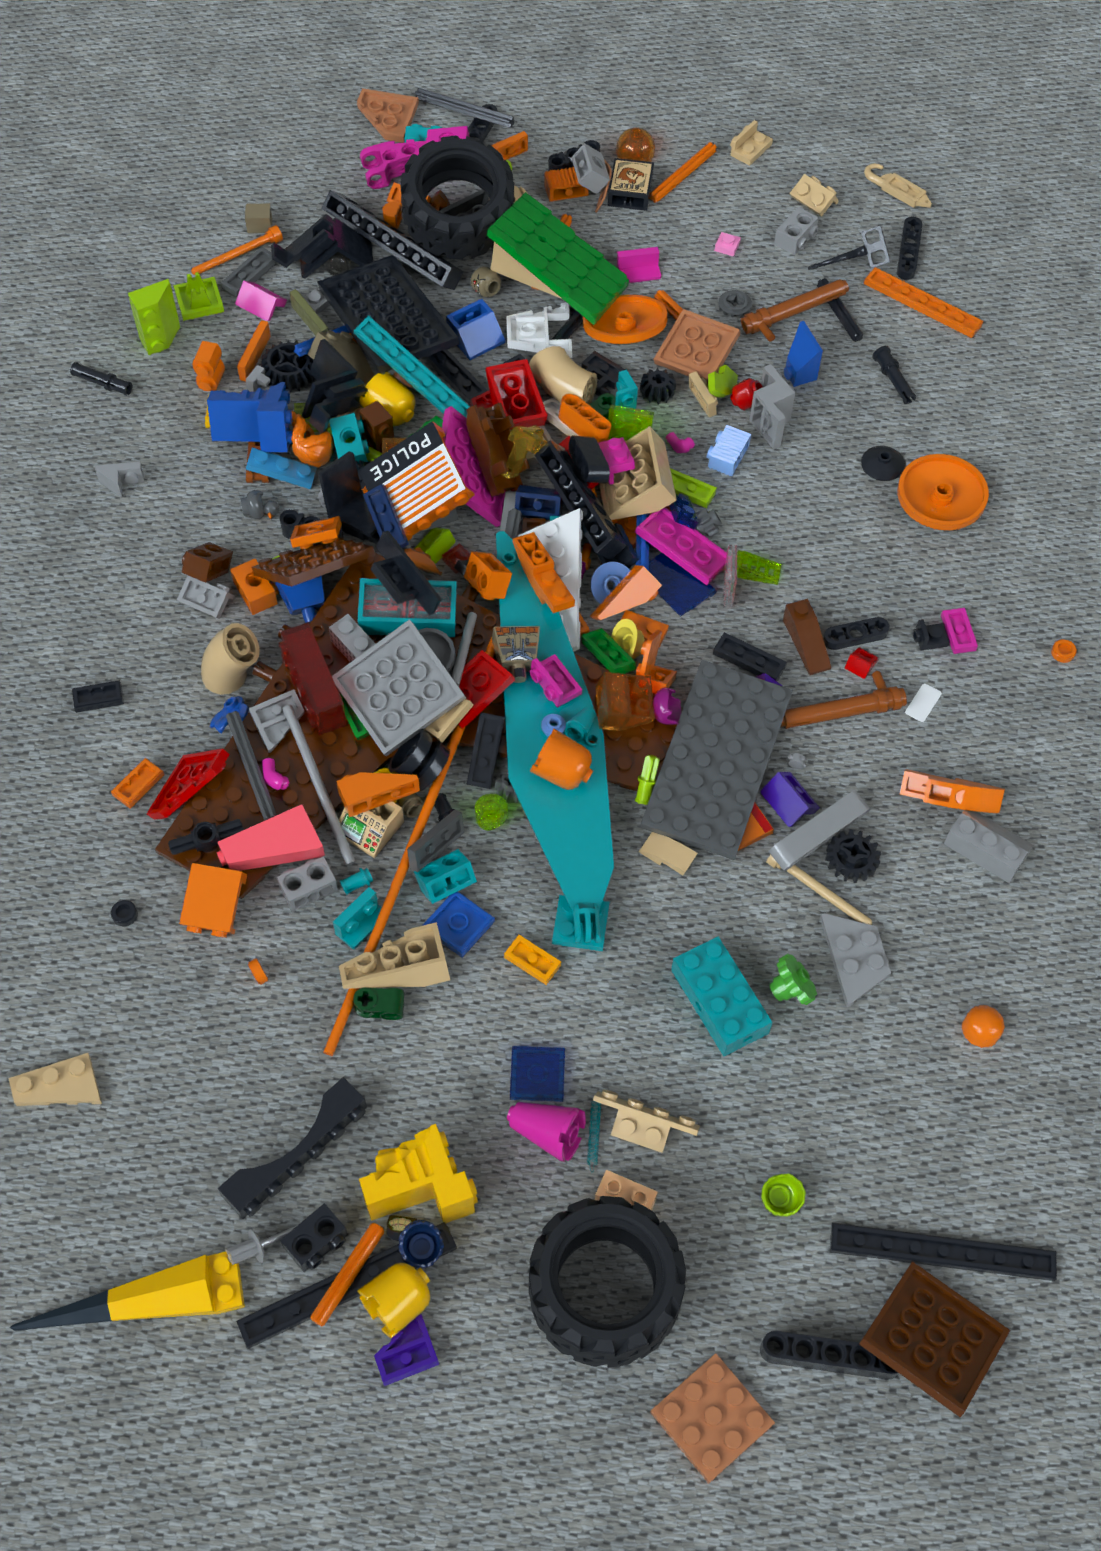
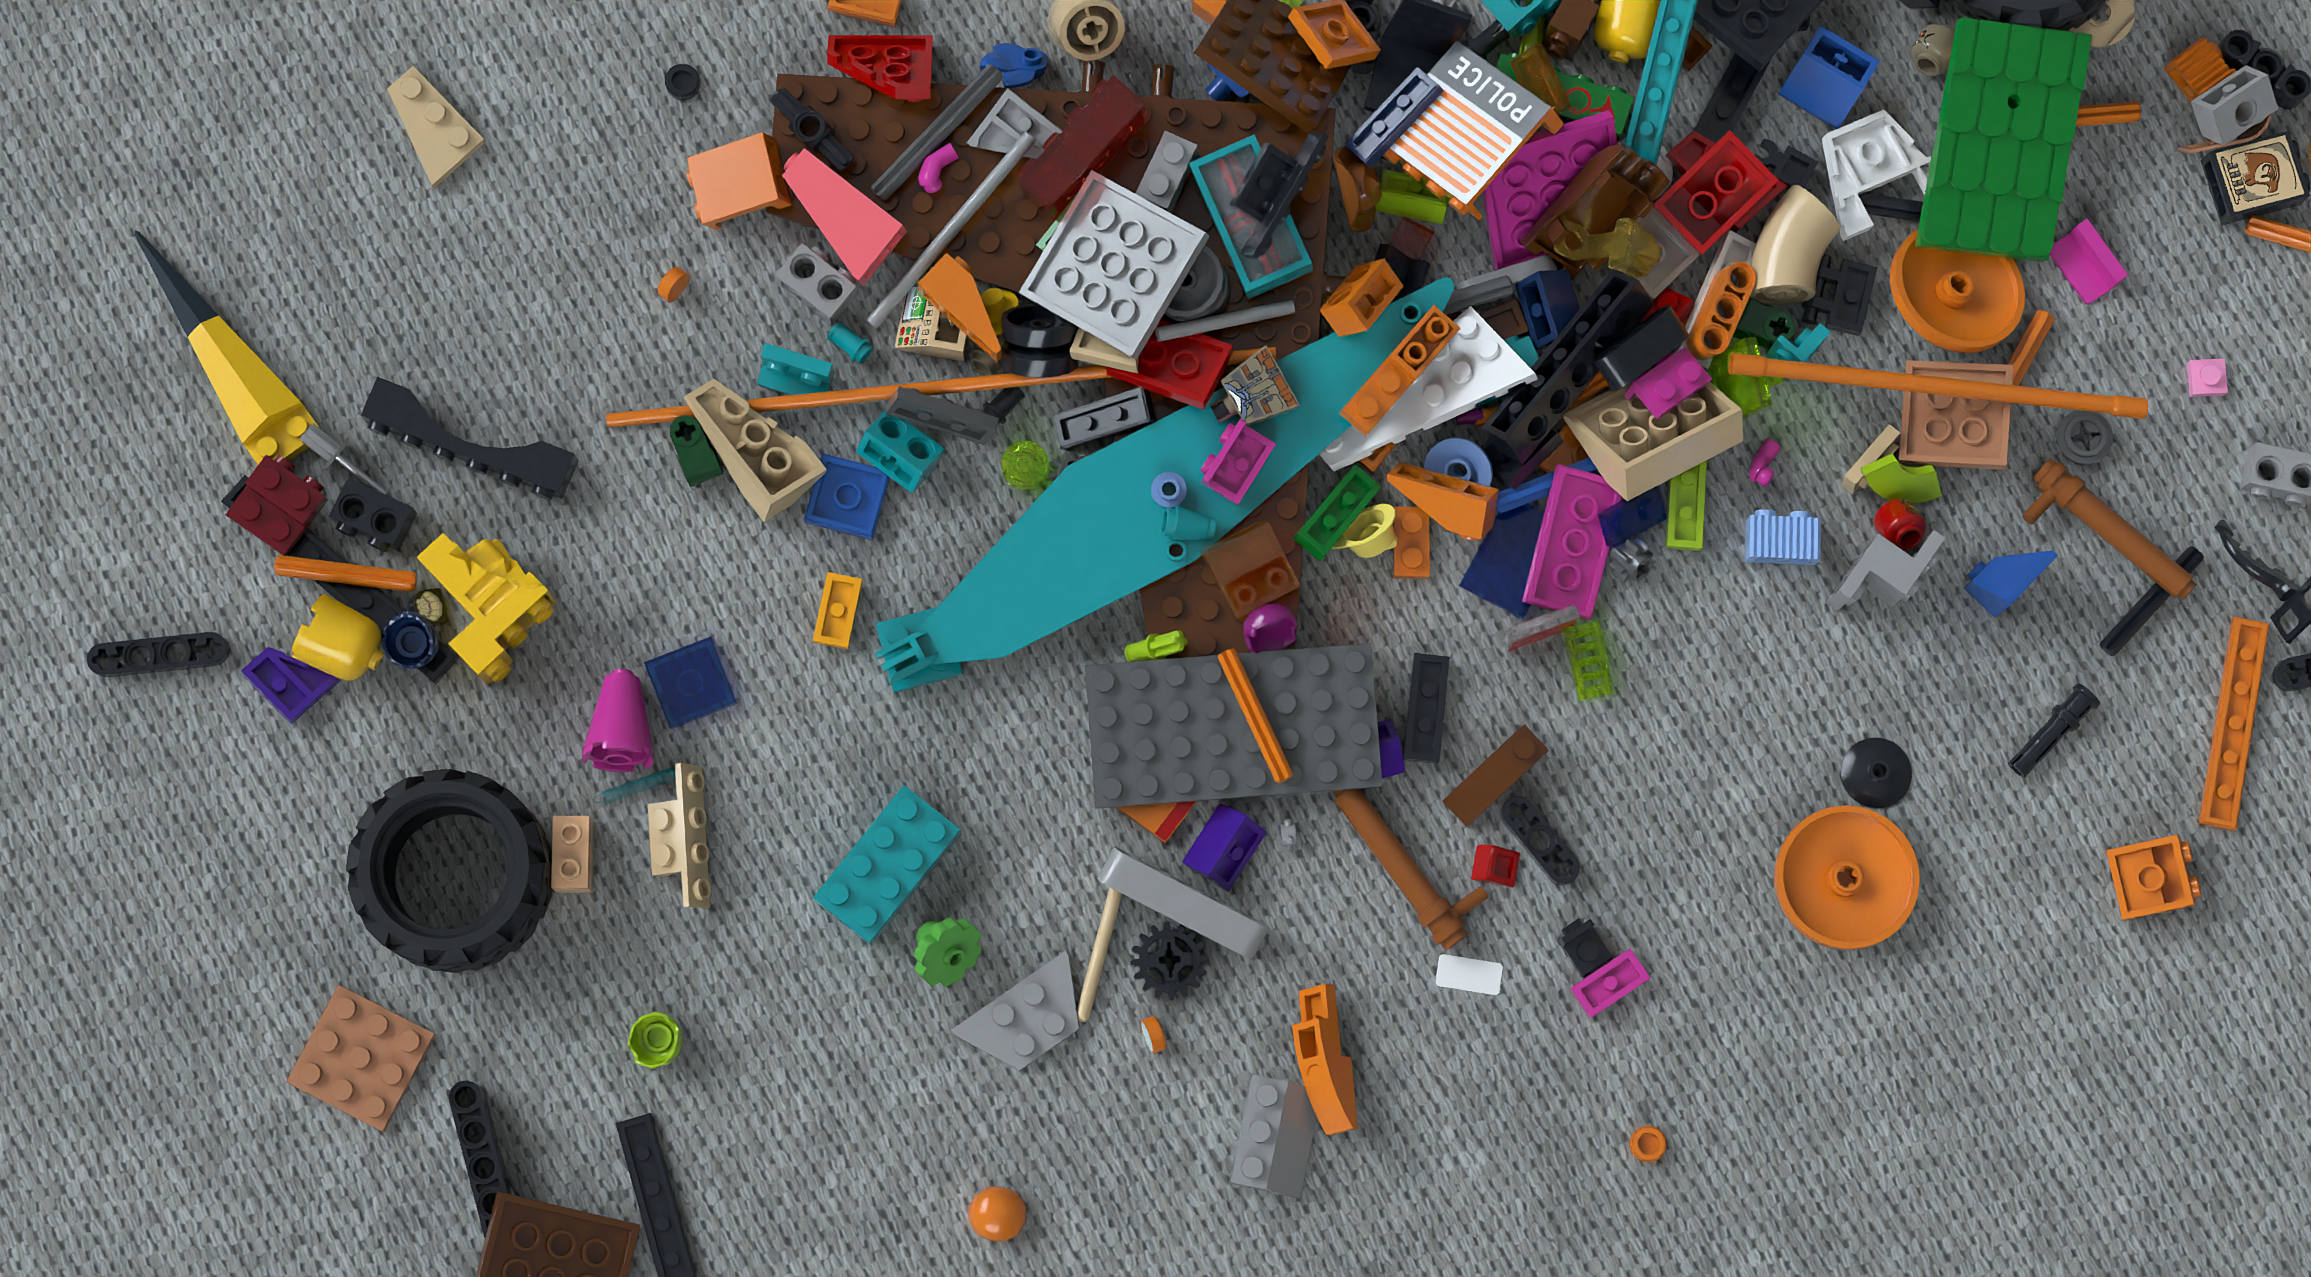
camera: 60 degrees right, 20 degrees up
(272, 1301) = (277, 504): none -> dark red plate
(341, 1446) = (158, 654): none -> black beam
(563, 761) = (1108, 527): orange cylinder -> none
(630, 404) = (1760, 366): none -> orange piece
(658, 386) = (1863, 401): black gear -> none
(660, 676) = (1330, 587): orange bracket -> none
(668, 851) = (1067, 719): tan slope -> none
(719, 735) = (1255, 715): none -> orange axle
(897, 884) = (1153, 1034): none -> orange tile
(997, 361) = (2153, 877): none -> orange plate

